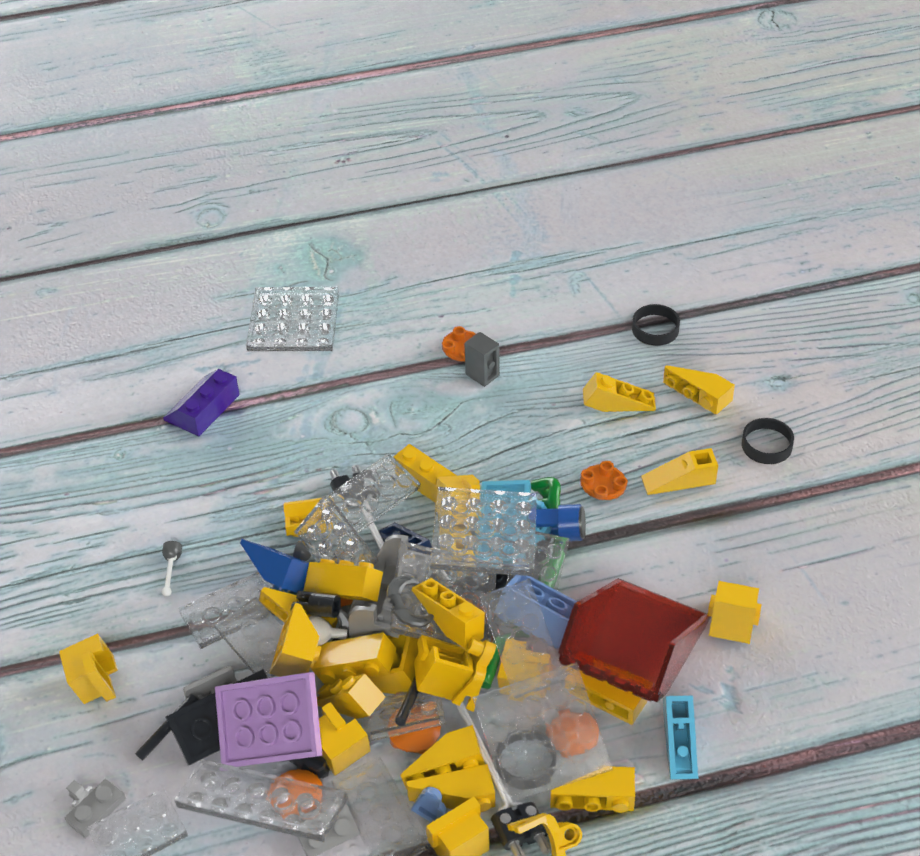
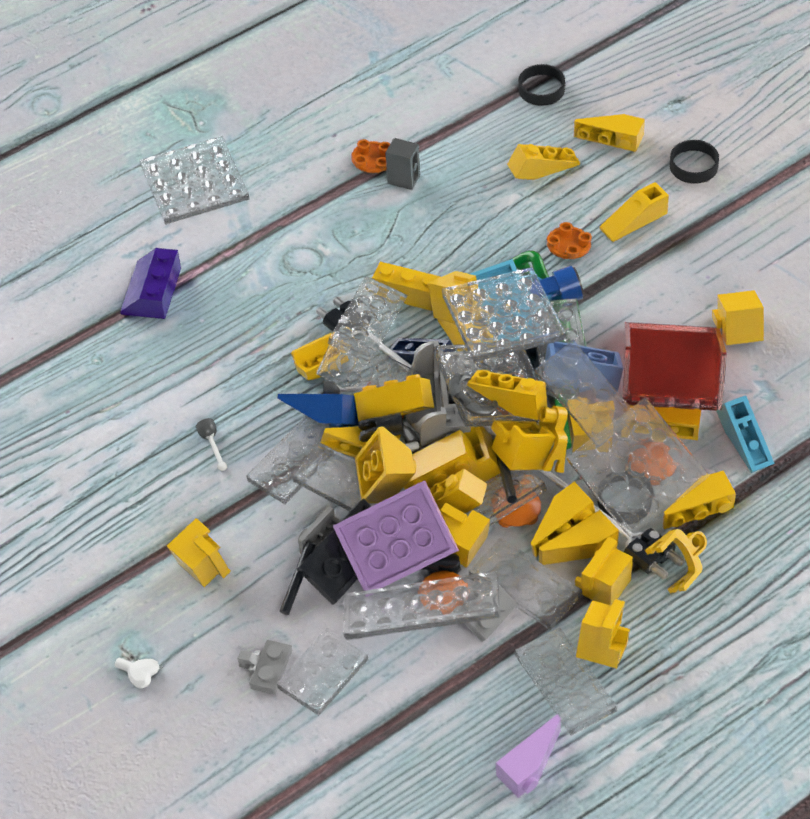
camera: 20 degrees left, 5 degrees up
(429, 804) = (566, 560): medium blue tile -> none

